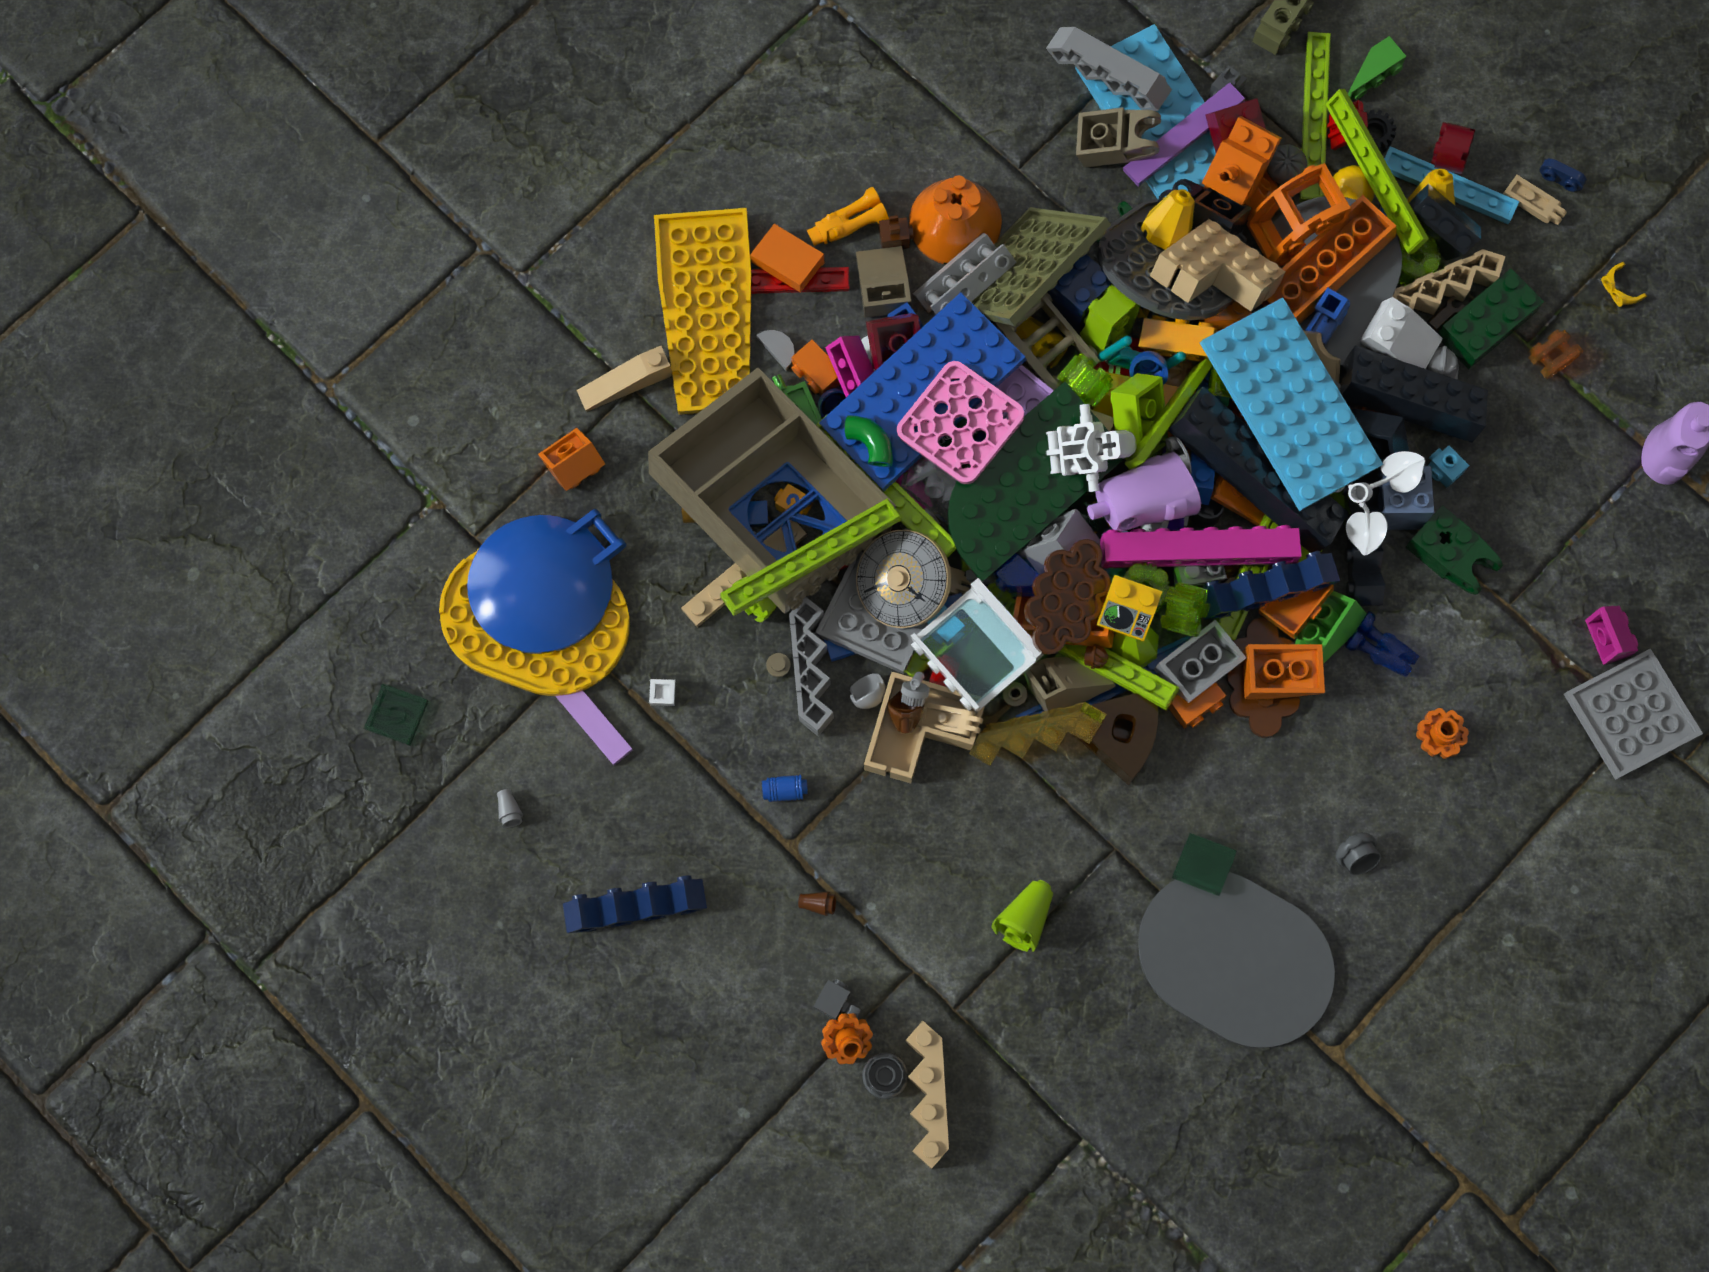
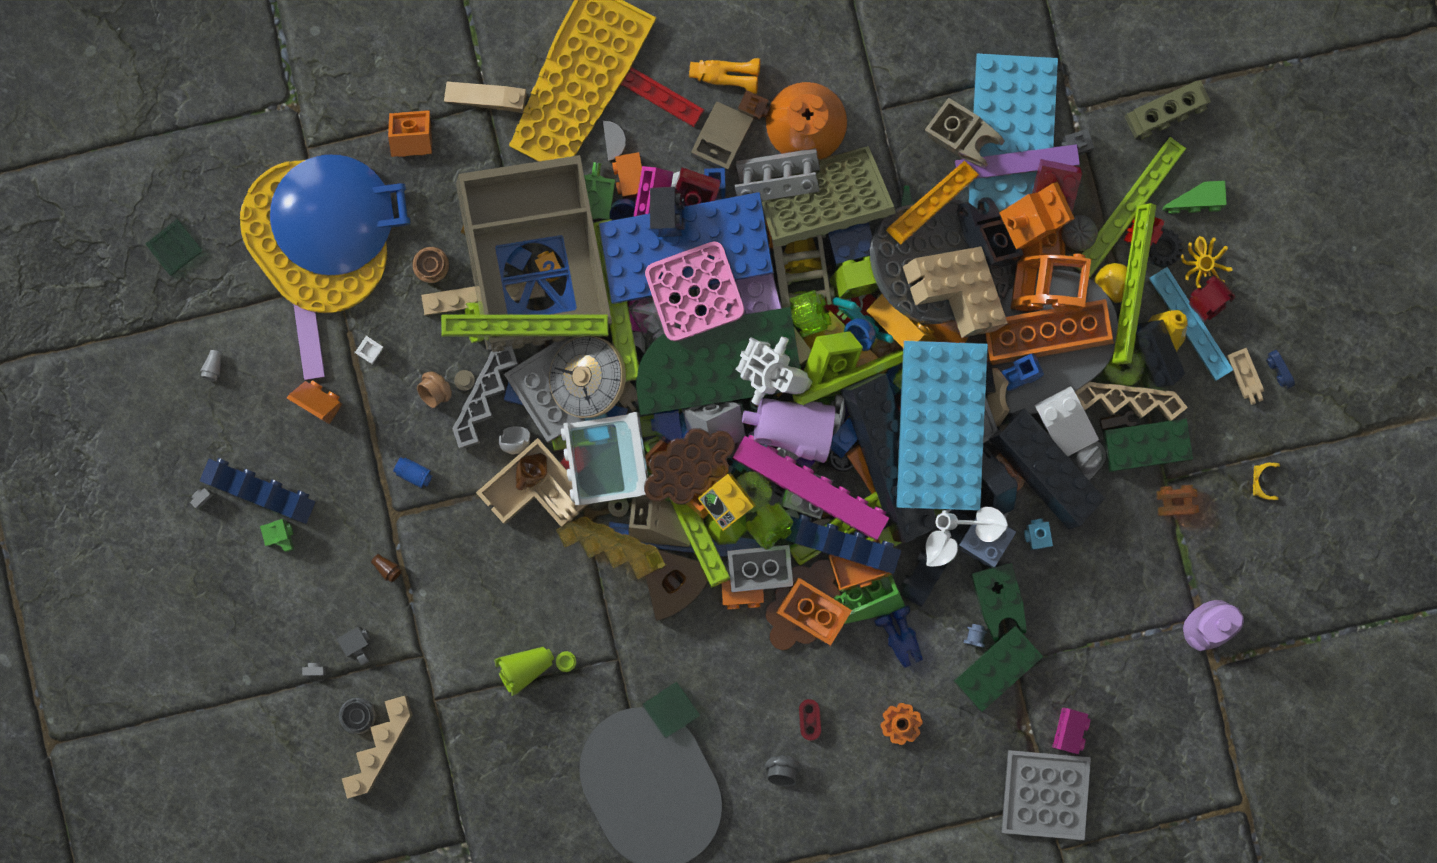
camera: 30 degrees right, 10 degrees up
(579, 950) = (200, 497): none -> light grey plate
(639, 777) = (316, 401): none -> orange slope
(672, 572) = (430, 264): none -> medium nougat piece
(684, 937) = (278, 533): none -> bright green brick
(753, 691) = (434, 389): none -> medium nougat piece
(787, 258) = (662, 75): orange container -> none
(809, 1055) = (313, 669): none -> light grey plate
(847, 1038) = (346, 674): orange plant -> none
(873, 437) = (626, 262): green cylinder -> none
(883, 360) = (666, 212): none -> black brick
(914, 692) = (543, 463): light grey piece -> none
(1064, 883) = (566, 661): none -> lime plate
(1095, 656) = (686, 518): reddish brown plate -> none
(1114, 68) = (996, 80): light grey brick -> none
(1133, 208) = (932, 202): none -> light orange tile
(1170, 219) = (950, 231): yellow cone -> none
(1351, 785) = (810, 719): none -> dark red plate
(1421, 120) = (1204, 263): none -> yellow animal
(1455, 600) = (976, 635): none -> sand blue brick
(1499, 619) = (997, 668): none -> dark green brick

